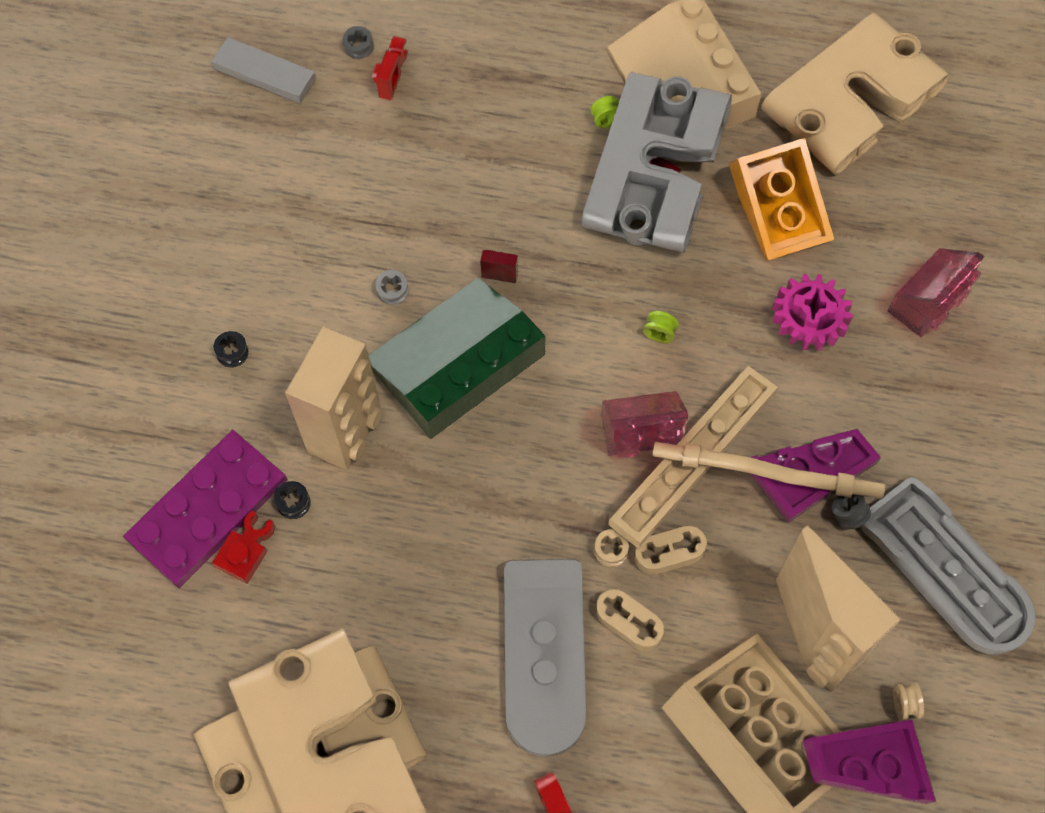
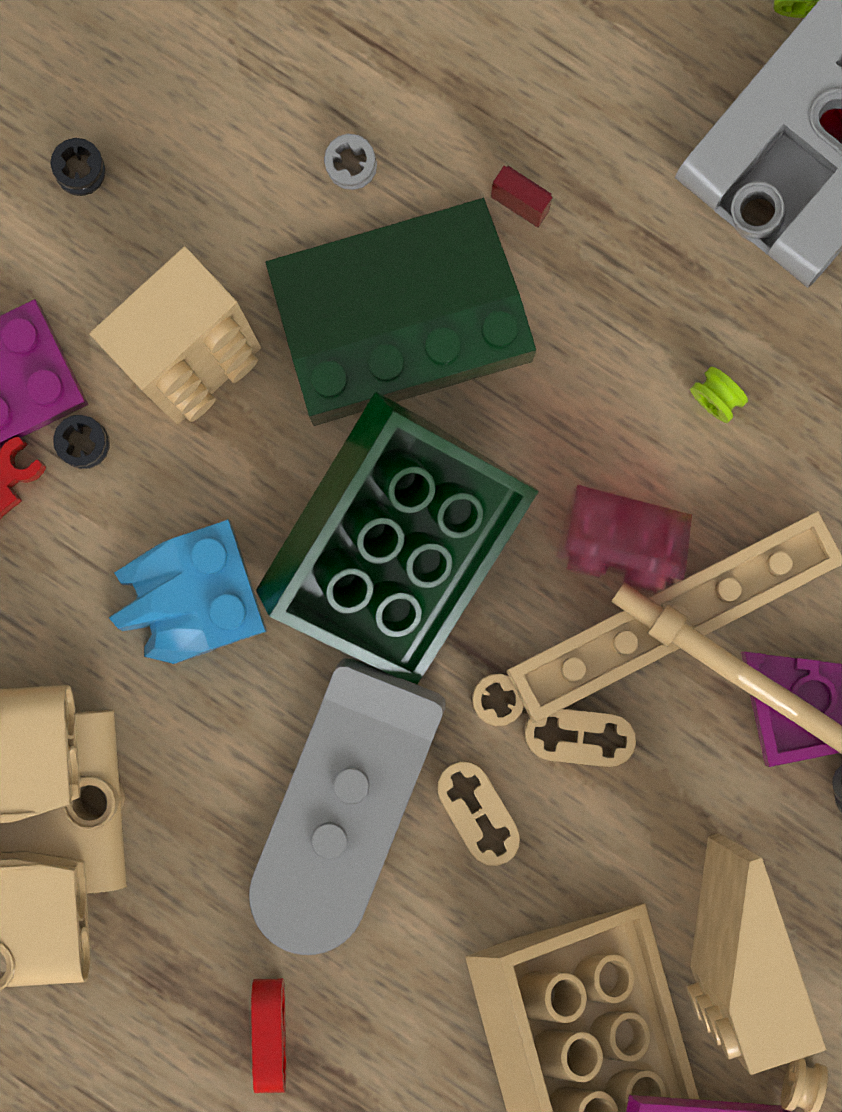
camera: 25 degrees right, 20 degrees up
(396, 561) = (191, 595): none -> dark azure plate
(508, 475) = (394, 541): none -> dark green slope

